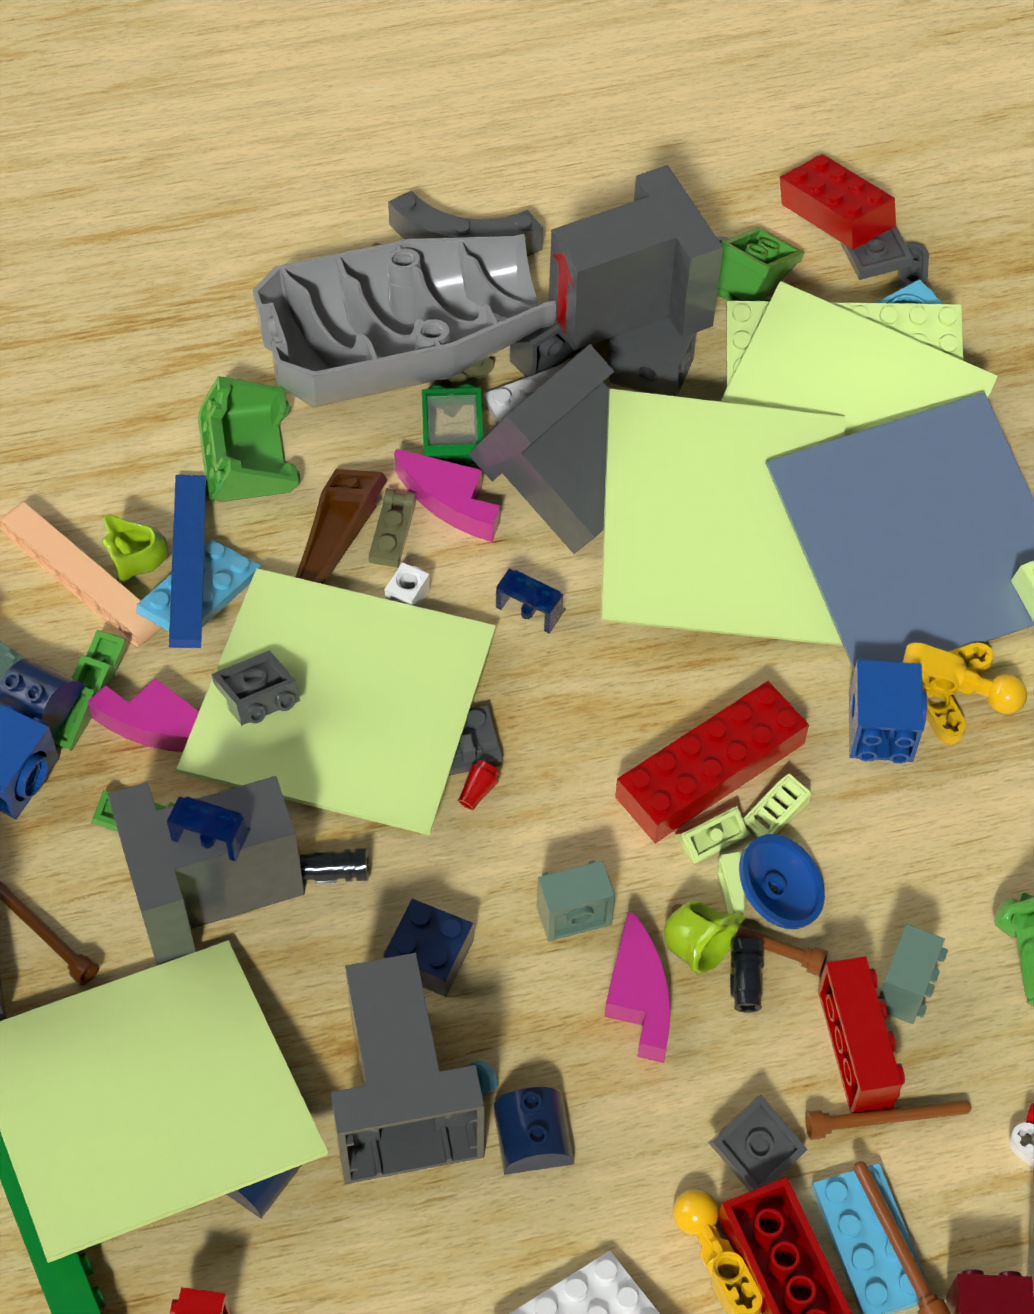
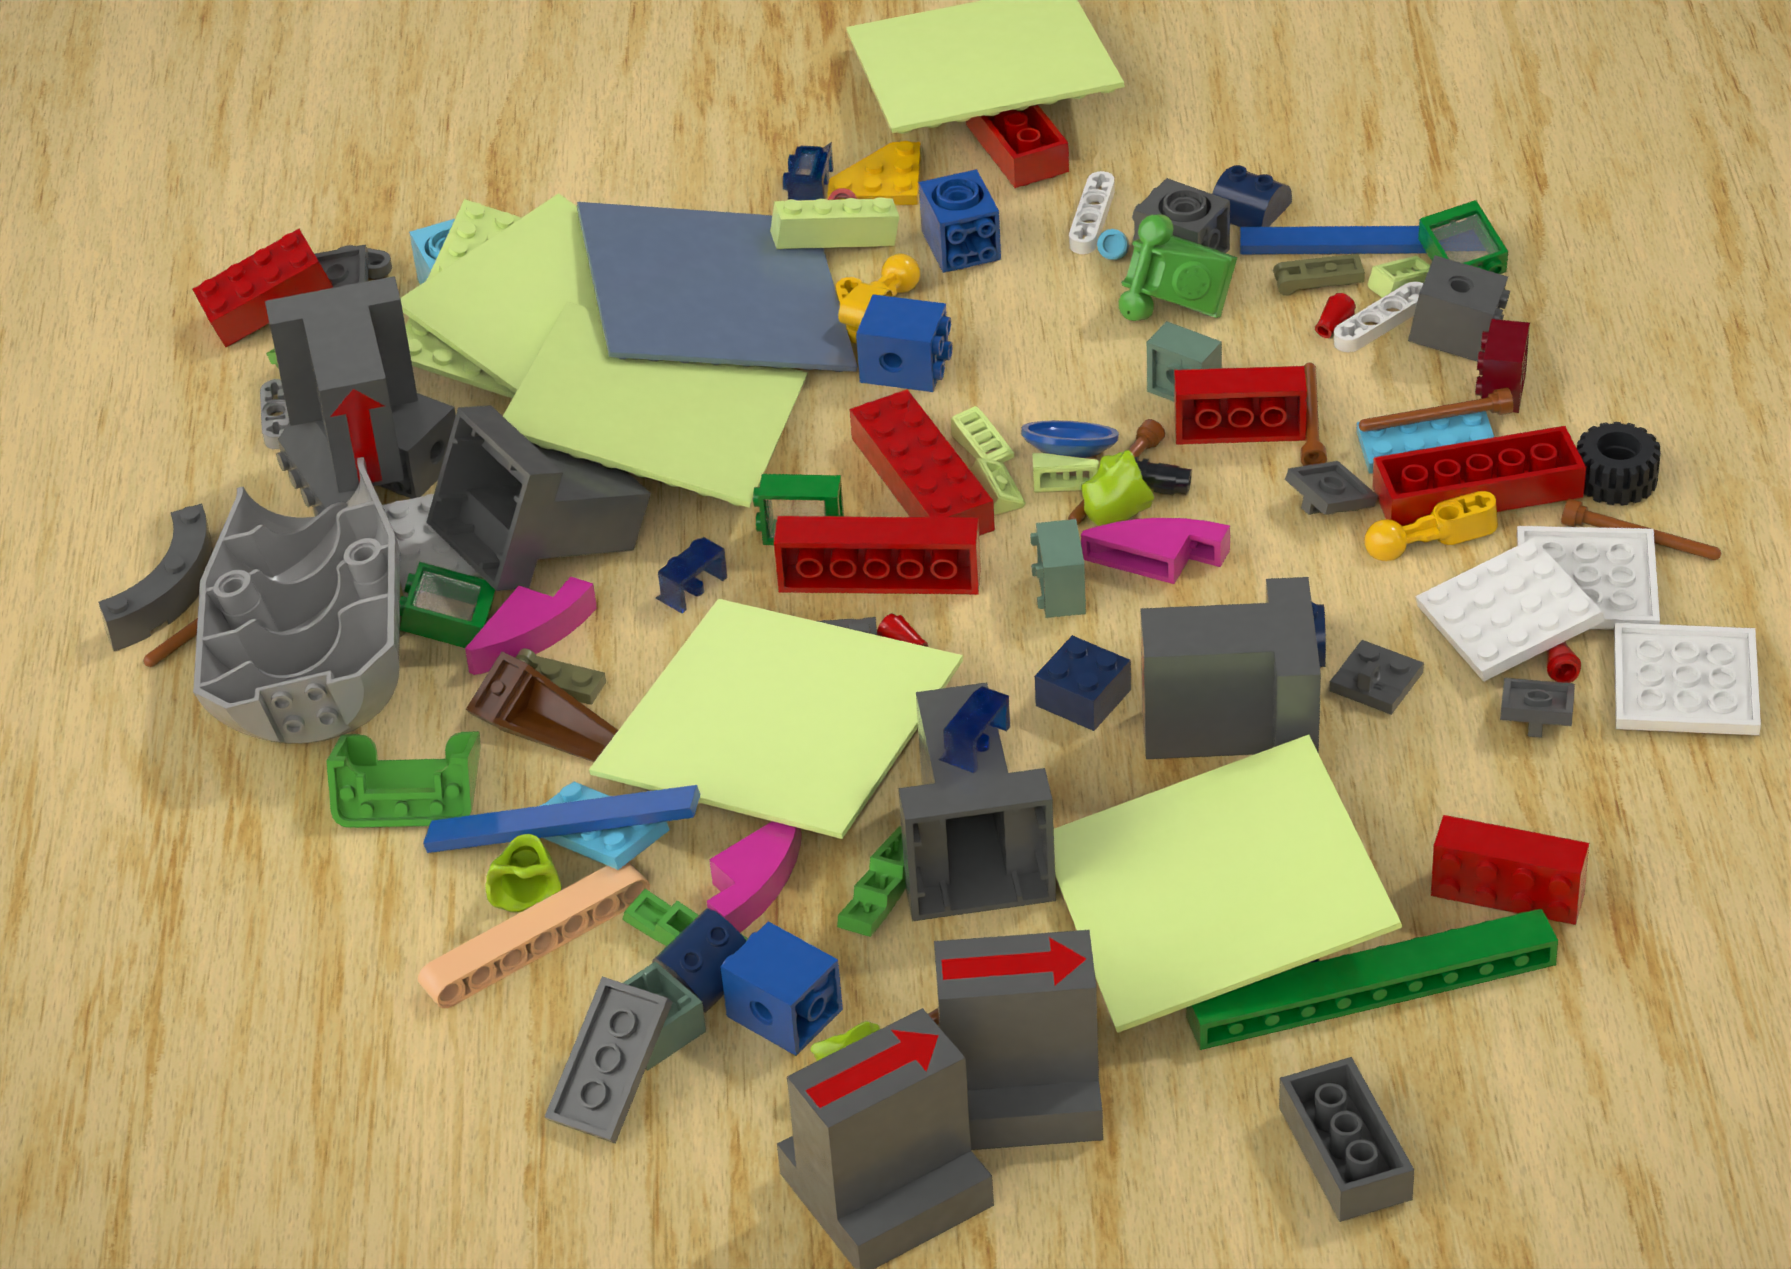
camera: 75 degrees left, 15 degrees down
(257, 688) = (762, 756): dark grey plate -> none
(406, 577) = (644, 663): white brick -> none
(488, 1225) = (1376, 677): none -> dark grey hinge
(570, 742) = (877, 555): none -> red brick
(620, 667) = (795, 497): none -> green window

